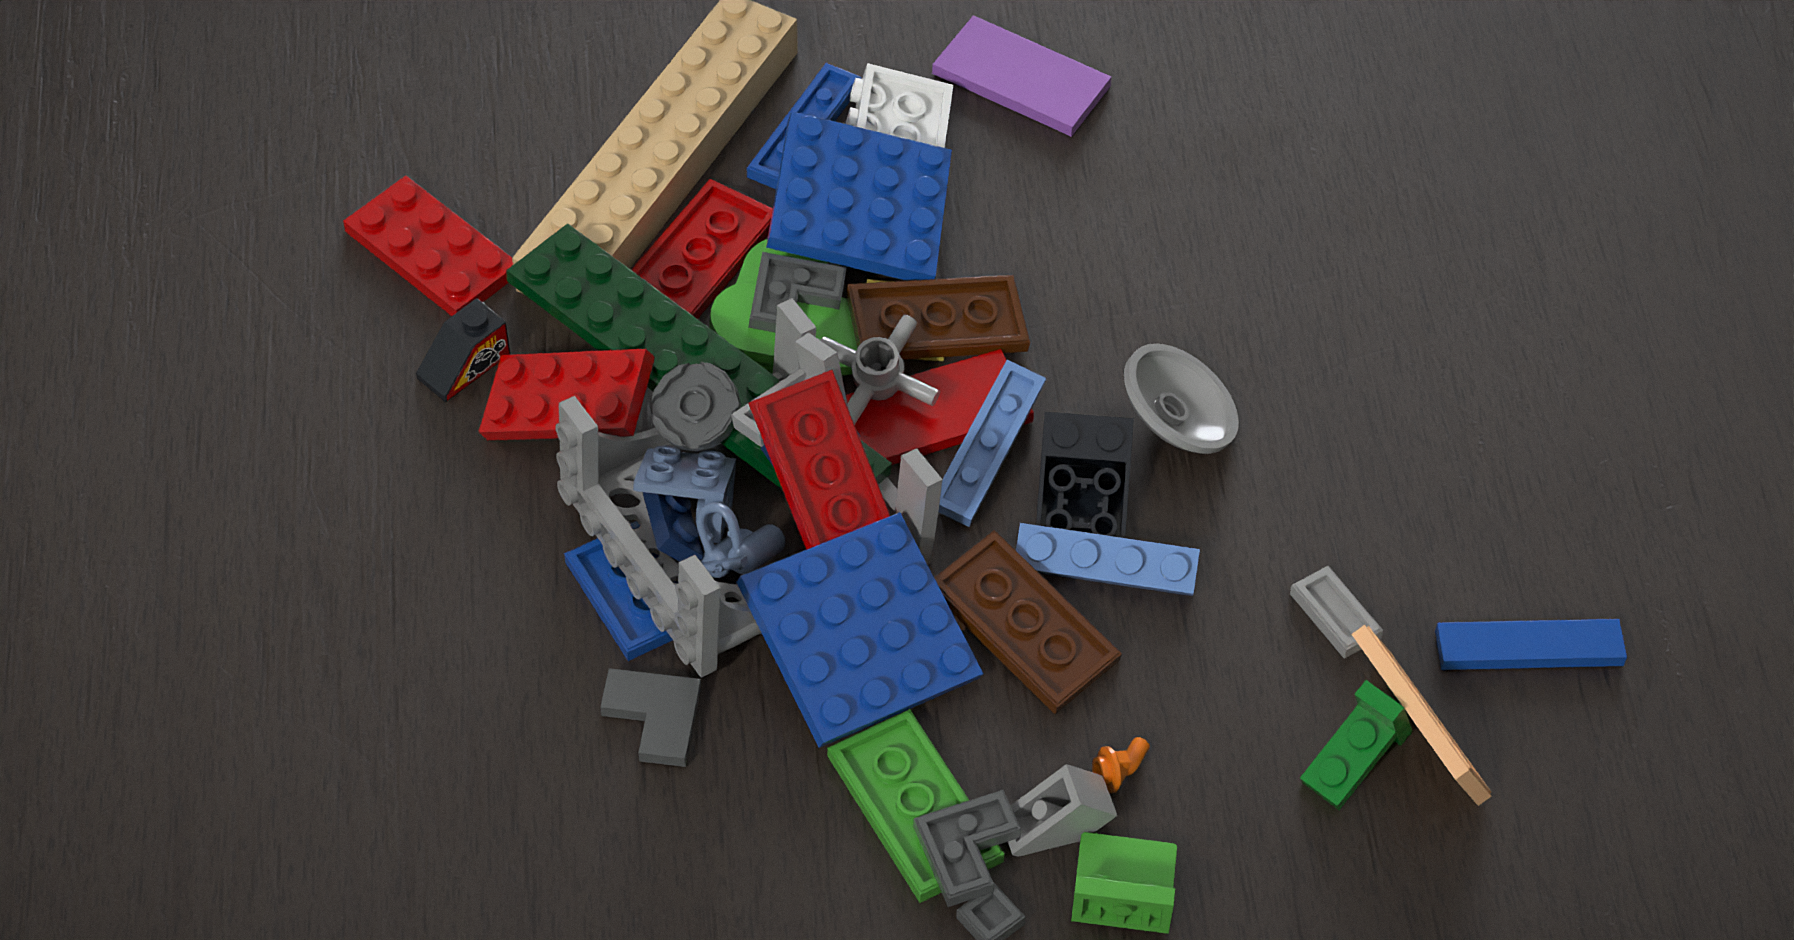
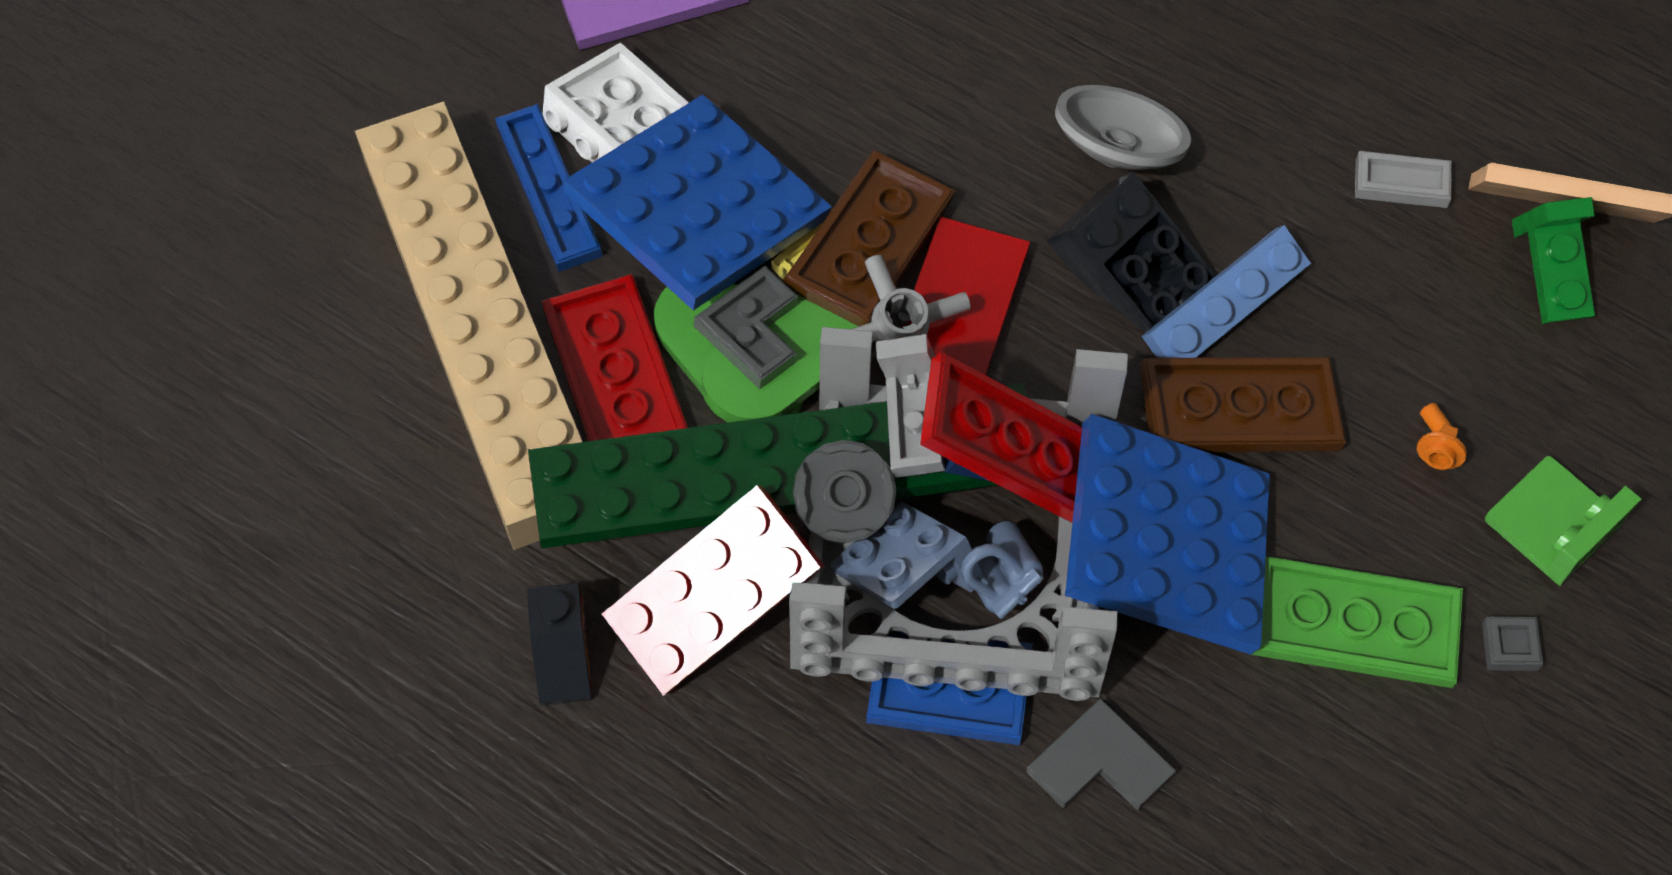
camera: 50 degrees left, 10 degrees up
(430, 246) = (397, 587): red plate -> none
(673, 526) = (948, 607): dark blue plate -> none
(954, 843) = (1429, 619): dark grey tile -> none
(988, 442) = (1036, 290): medium blue plate -> none
(1061, 810) = (1457, 520): light grey slope -> none
(1530, 644) = (1537, 76): blue tile -> none

